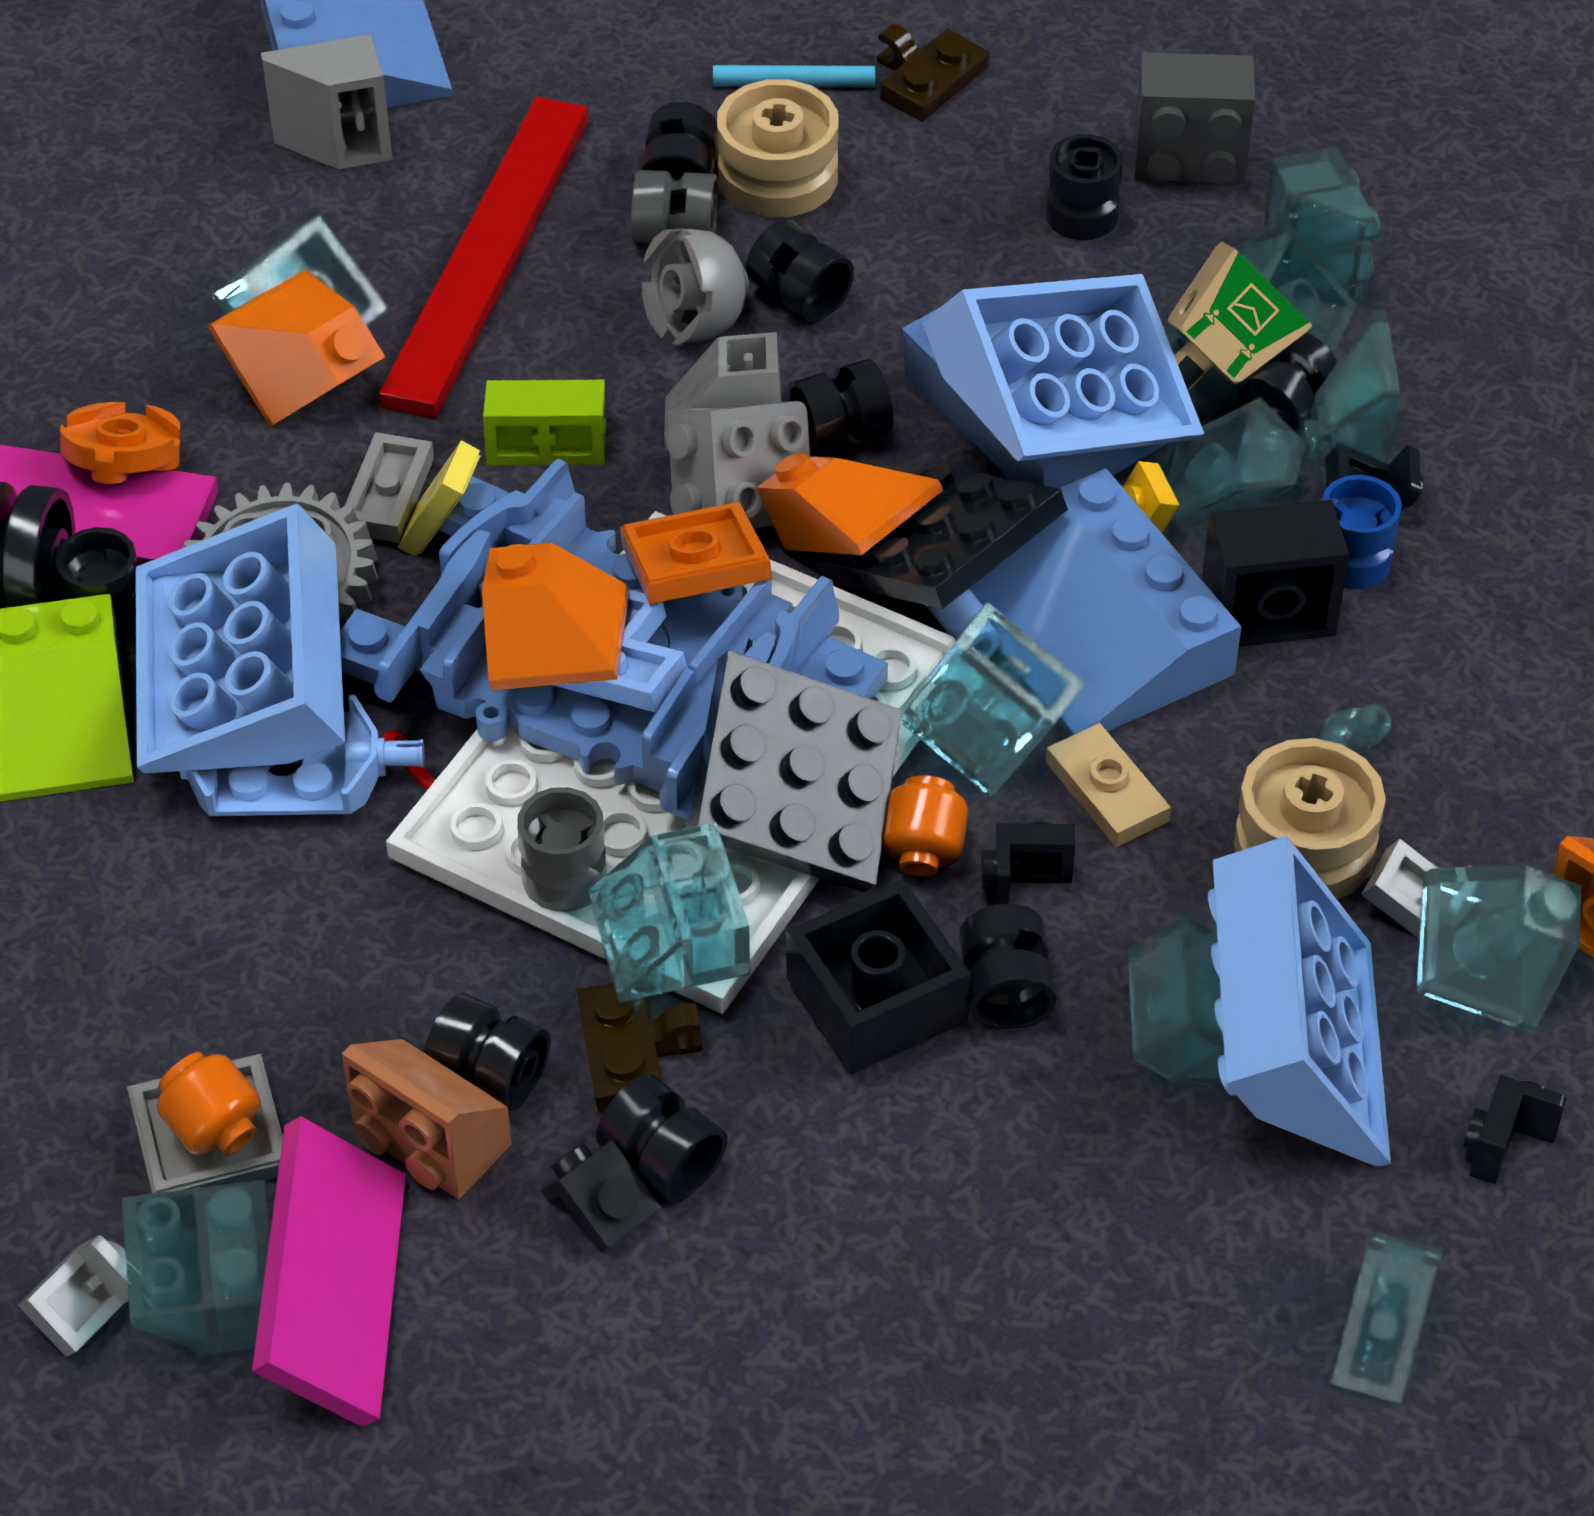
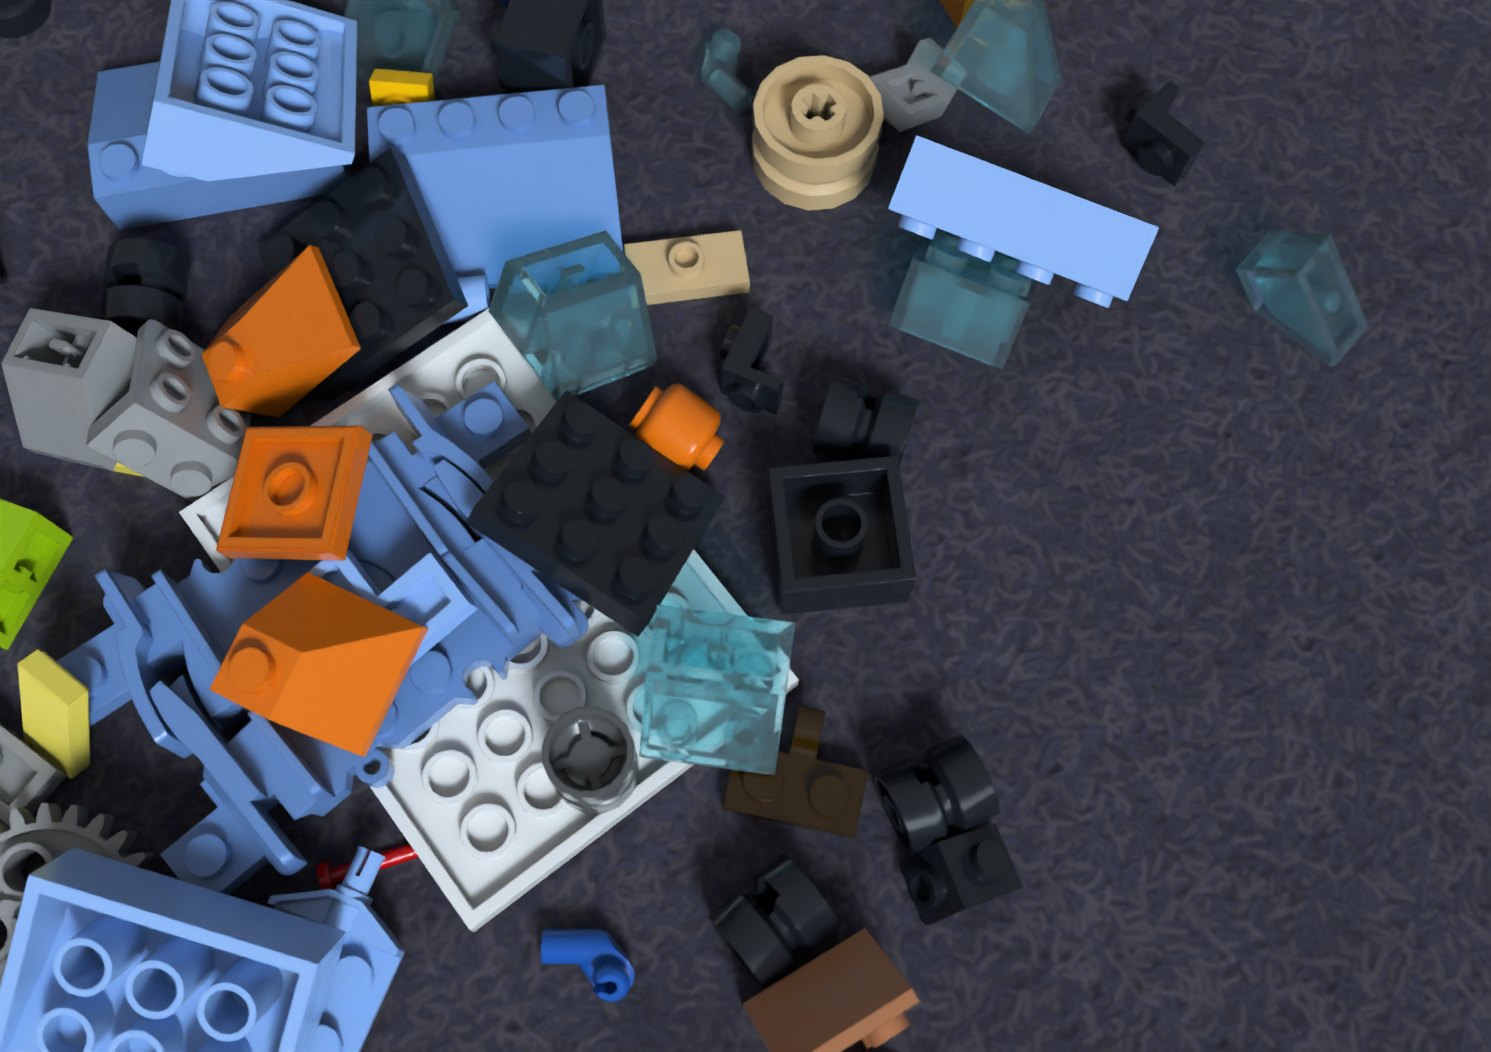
camera: 70 degrees left, 20 degrees up
(406, 946) = (596, 955): none -> blue arm

